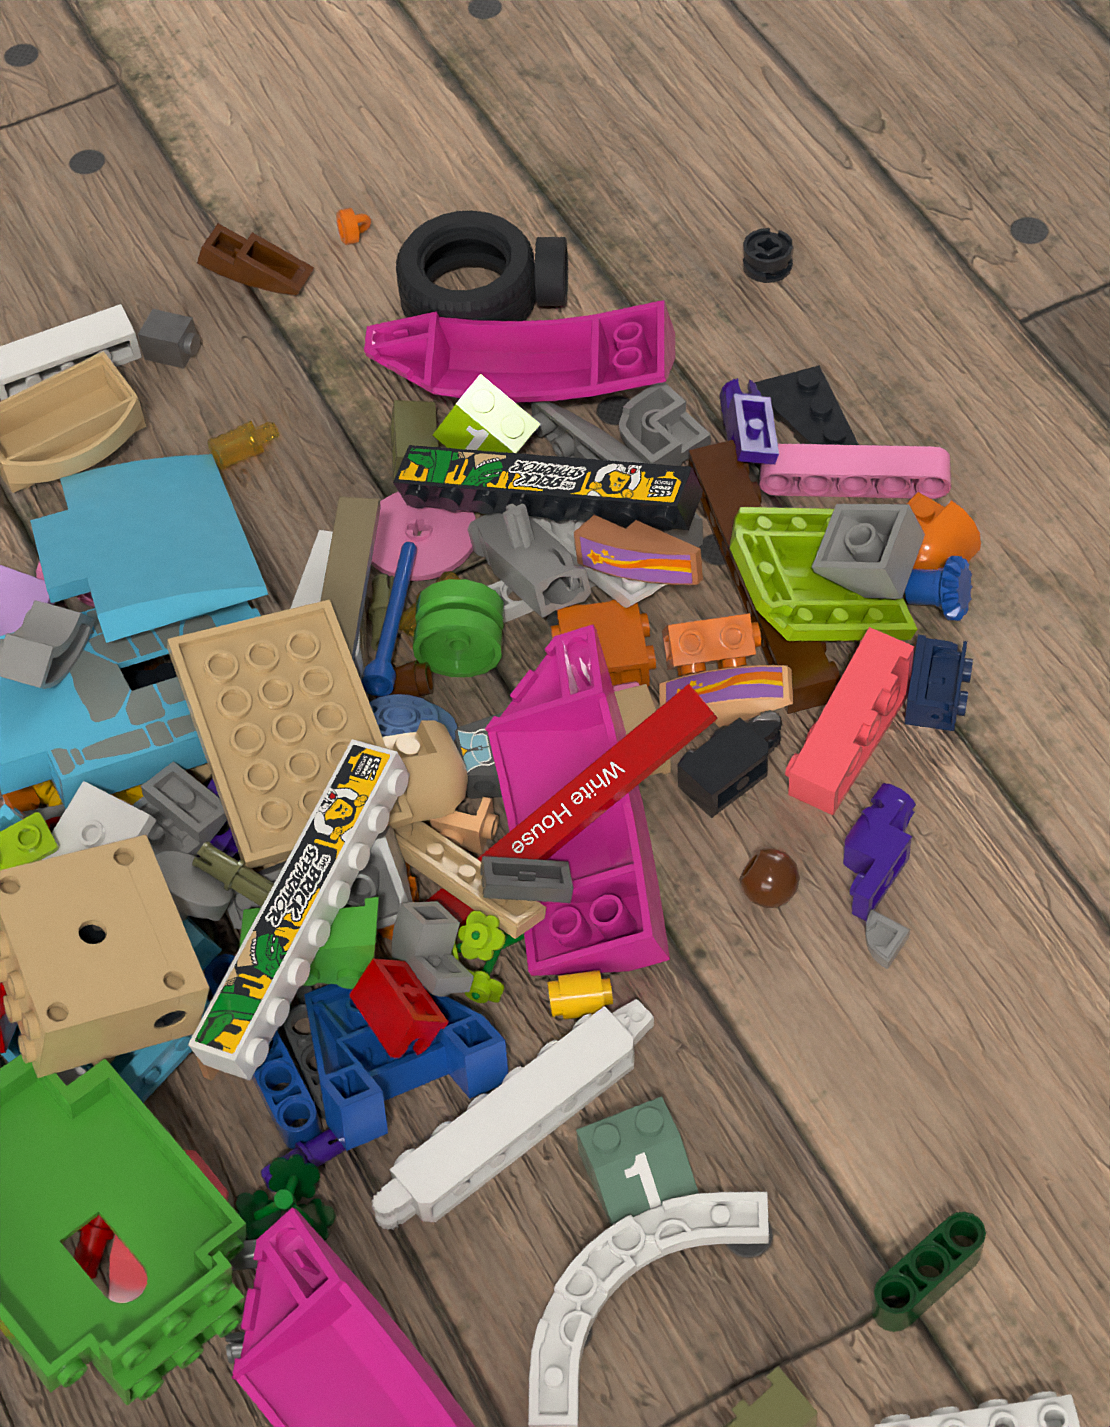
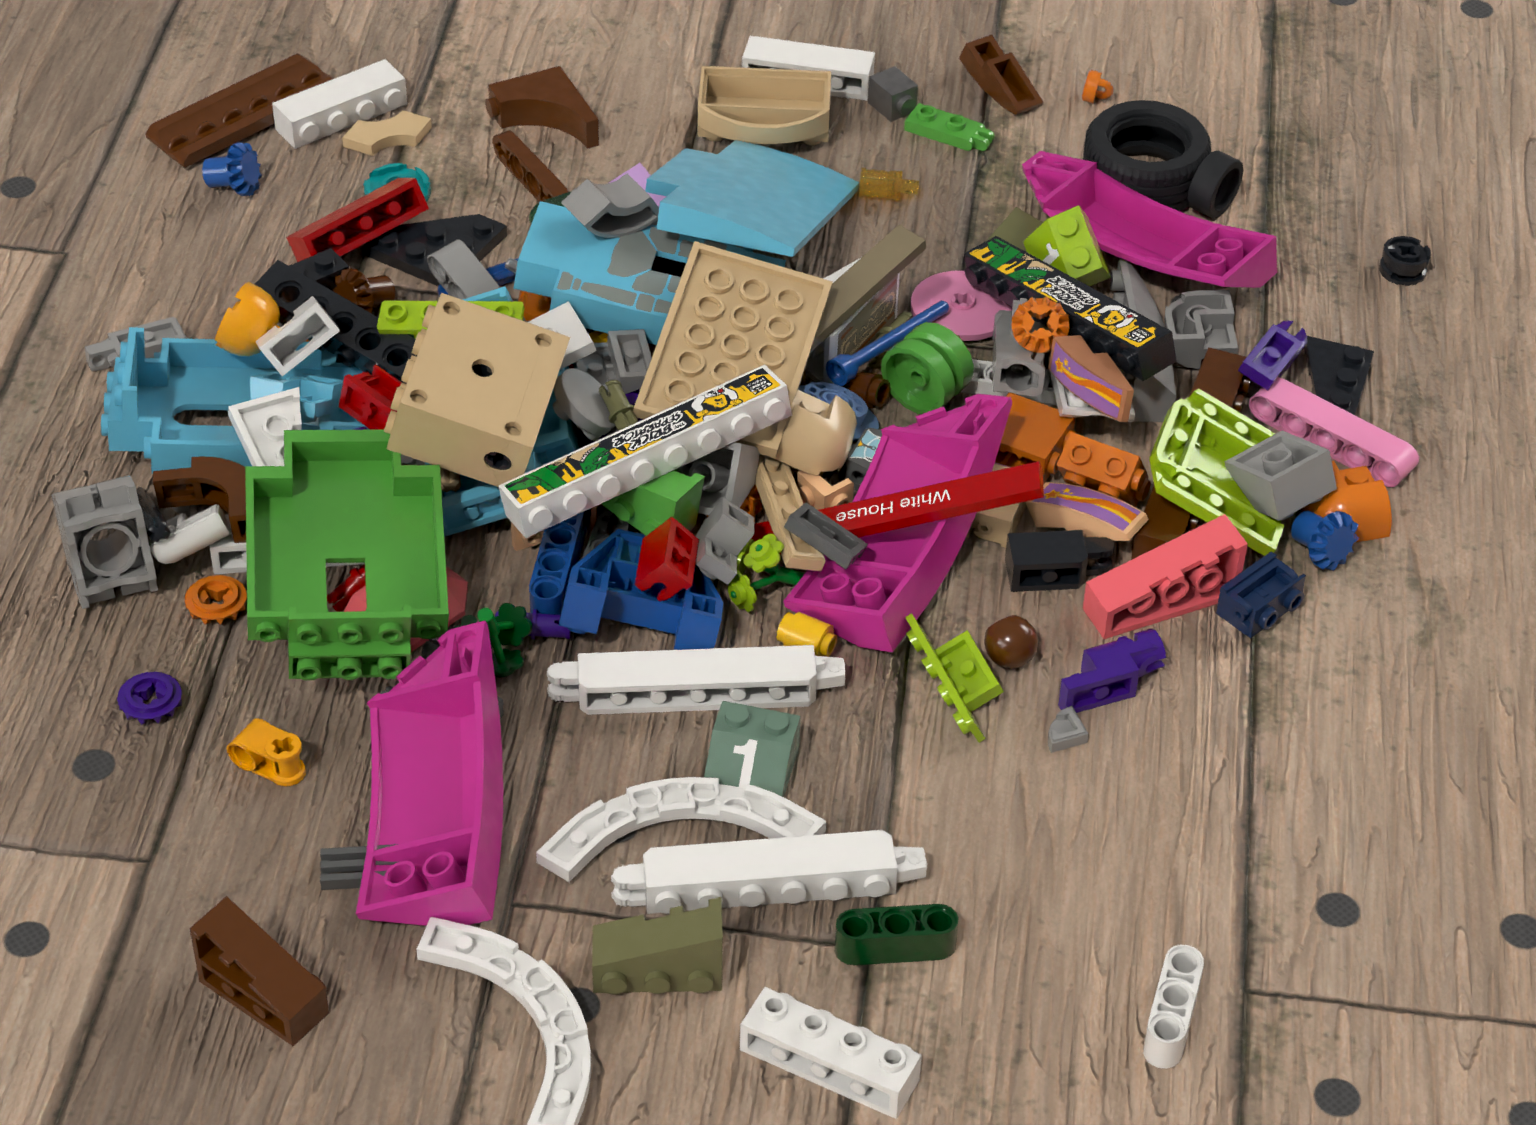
camera: 30 degrees right, 10 degrees down
(248, 345) = (948, 128): none -> bright green hinge
(532, 533) = (1040, 340): none -> orange gear
(753, 939) = (963, 673): none -> lime bracket
(757, 1288) = (768, 871): none -> white hinge

